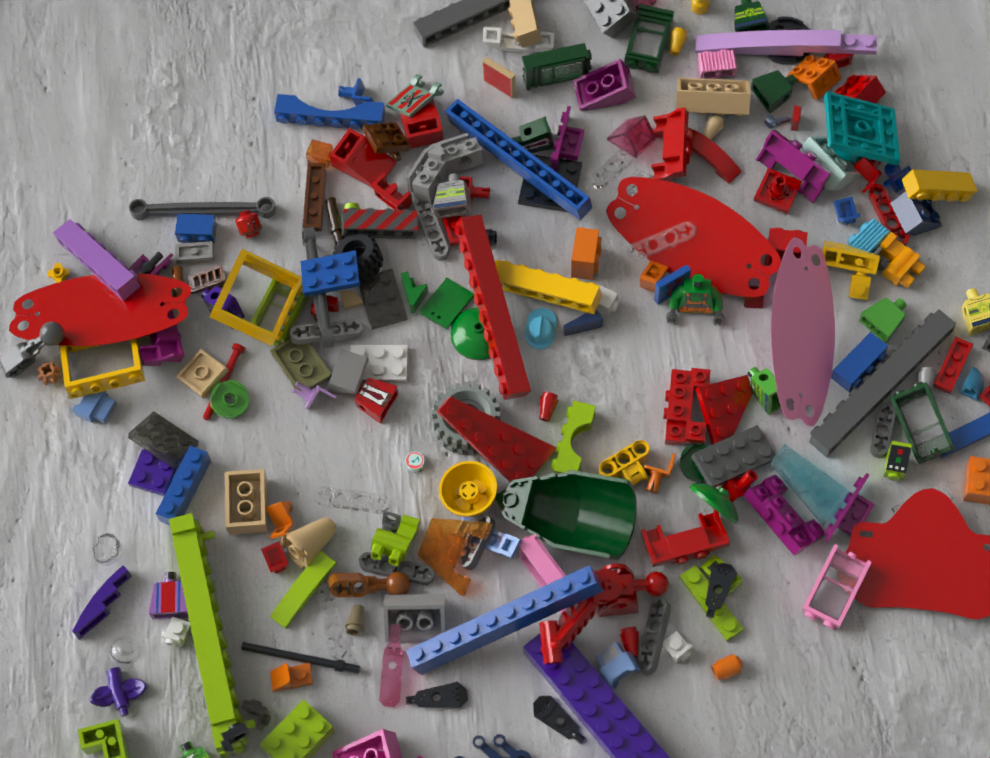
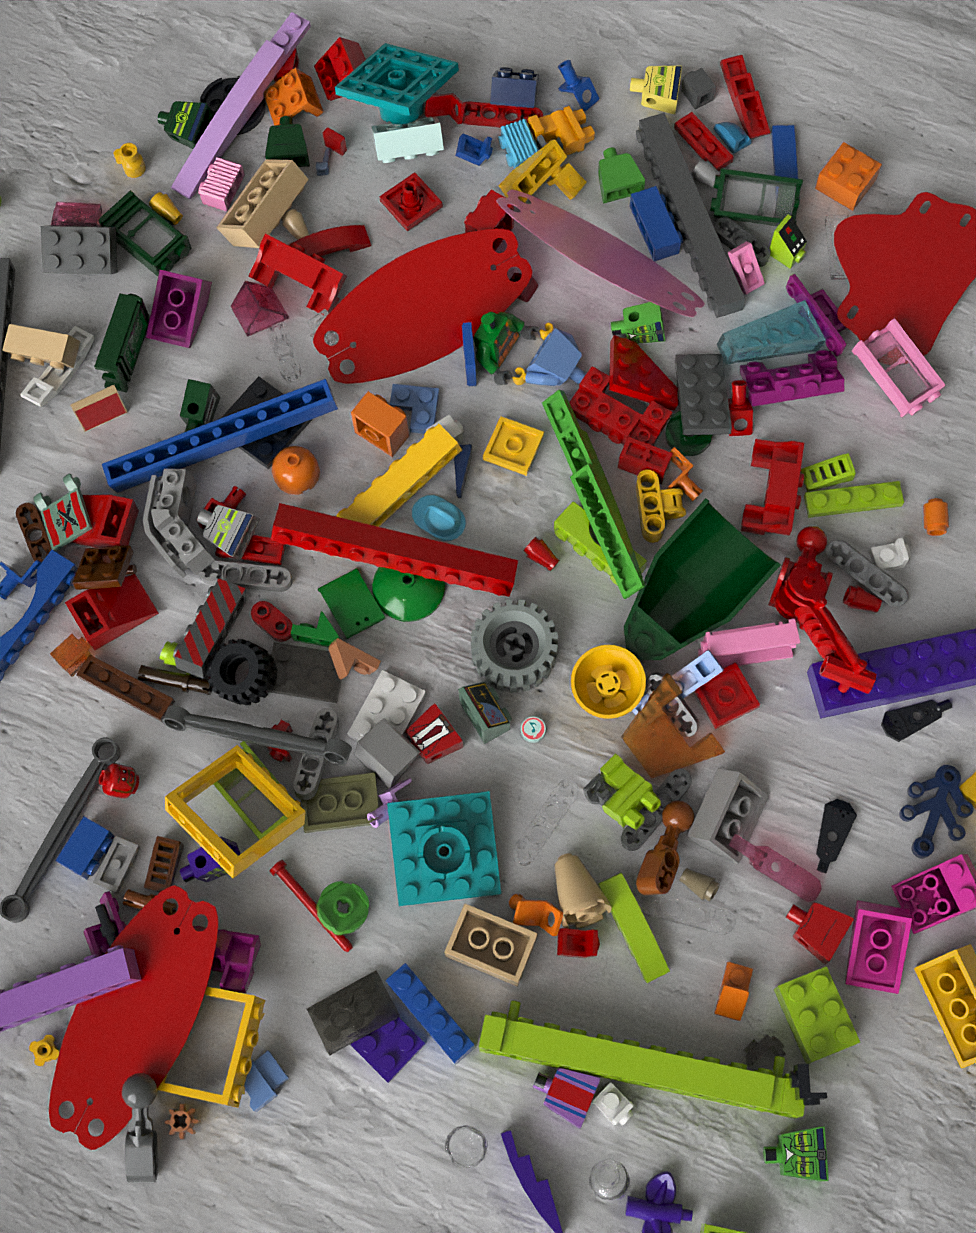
camera: 65 degrees left, 5 degrees up
(202, 373) = (288, 926): tan tile -> none
(299, 441) = (451, 821): none -> teal piece
(330, 273) = (253, 709): blue plate -> none
(338, 665) = (745, 929): black bar -> none
(350, 299) = (285, 708): tan tile -> none
(360, 714) = (819, 929): none -> red torso
(390, 195) = (179, 598): red window -> none
(394, 82) = (28, 528): none -> reddish brown beam
(402, 315) = (346, 656): none -> nougat slope
(408, 259) = (271, 620): none -> red plate
(408, 420) = (484, 711): none -> slope
(502, 445) = (572, 620): red wing -> none
(504, 578) = (727, 696): none -> red plate
(505, 620) = (795, 713): brick -> none
(525, 220) = (295, 470): none -> orange cylinder
(569, 142) = (225, 375): magenta bracket -> none
(608, 416) = (595, 494): none -> bright green slope
(616, 664) = (884, 624): medium blue piece -> none
(621, 349) = (513, 445): none -> yellow plate
(622, 274) = (420, 401): none -> medium blue plate
(652, 274) = (445, 369): orange slope -> none
(658, 440) = (642, 456): none -> red hinge
(661, 239) = (412, 340): clear beam -> none
(702, 343) = (553, 361): none -> medium blue torso
(717, 499) = (752, 429): green dish -> none
(719, 581) = (841, 473): black piece -> none
(797, 161) = (393, 161): magenta bracket -> none
(858, 441) = (746, 267): none -> bright pink slope
(896, 176) = (467, 80): clear blue hips -> none
(939, 185) = (502, 46): yellow brick -> none
(945, 253) = (577, 85): none -> blue bracket

